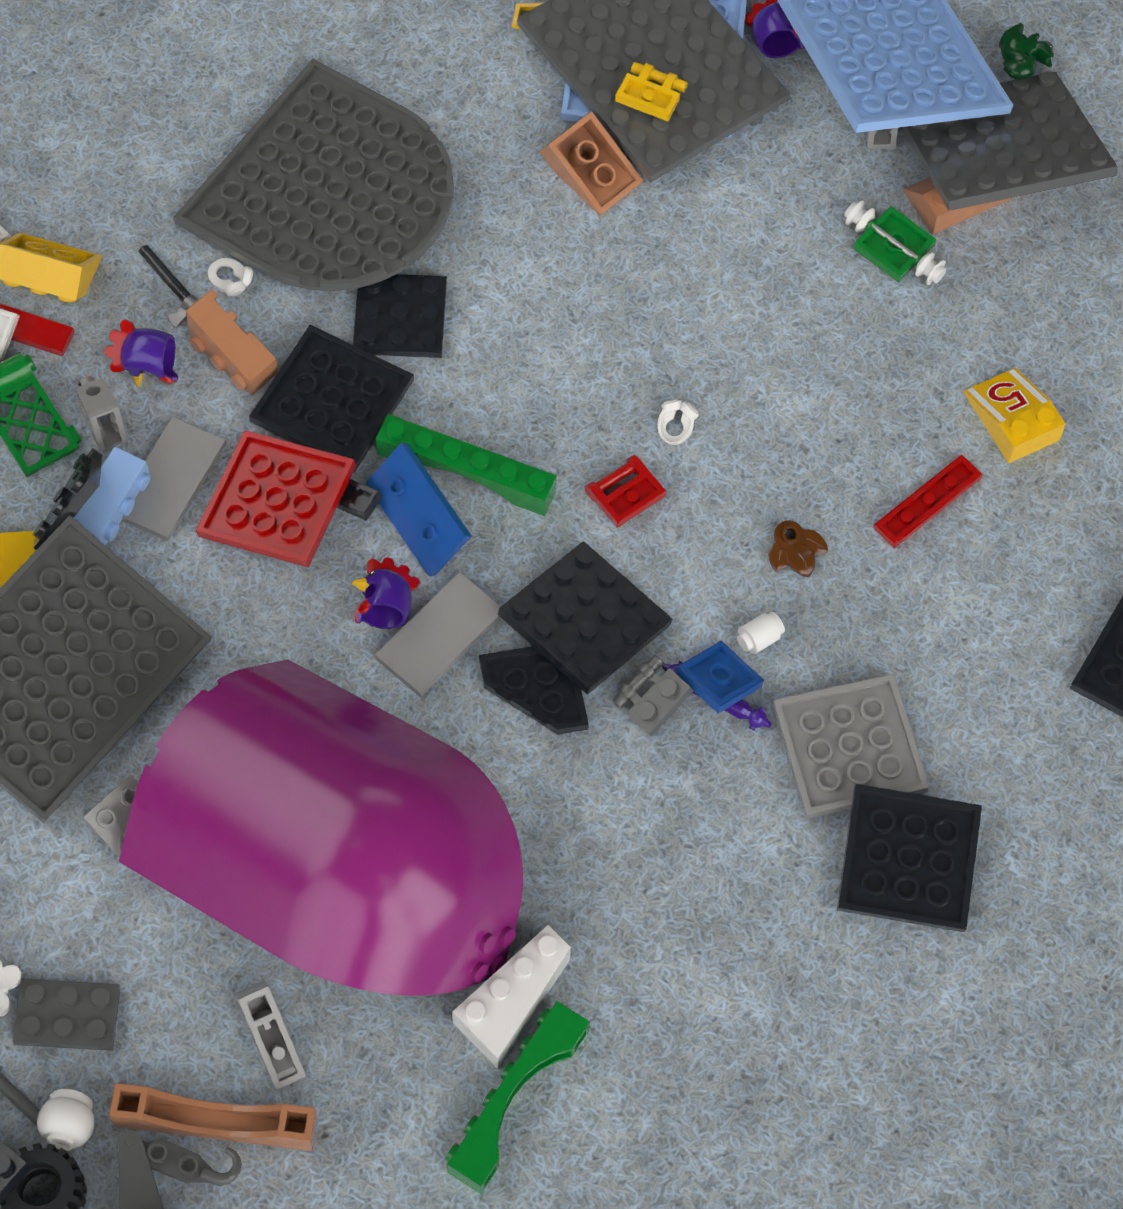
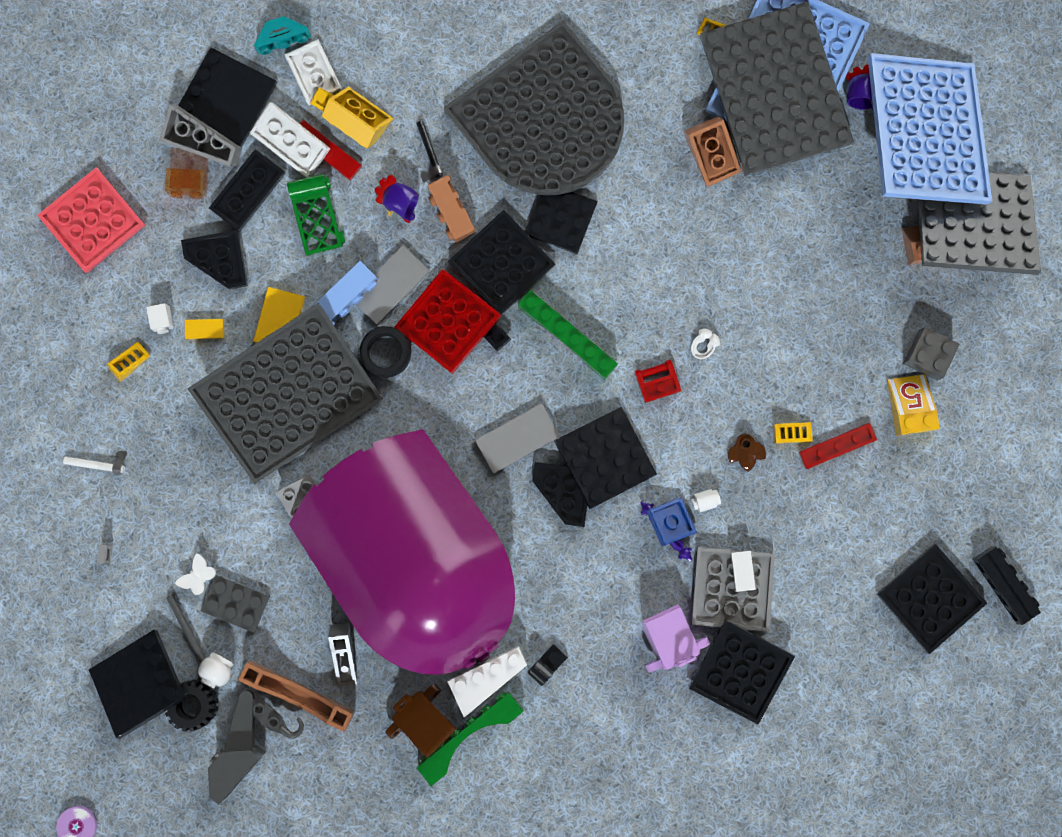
camera: 20 degrees right, 20 degrees up
(72, 496) = (326, 285): black plate -> none
(98, 401) = (360, 230): light grey torso -> none
(190, 540) = (380, 332): none -> black tyre
(227, 286) = (464, 167): white piece -> none
(386, 594) = (493, 404): dark purple piece -> none
(419, 509) = (529, 357): blue plate -> none
(431, 1087) = (421, 721): none -> reddish brown piece
(602, 949) = (547, 665): none -> black plate
(648, 96) = (762, 120): yellow plate -> none
(659, 701) = (629, 526): dark grey plate -> none
(780, 839) = (671, 639): none -> lavender piece
(838, 517) = (777, 432): none -> yellow slope
(855, 710) = (743, 571): none -> white tile
(894, 243) = (882, 266): green plate -> none
(1012, 334) = (931, 353): none -> dark grey brick
(1021, 52) = (1012, 155): dark green animal -> none

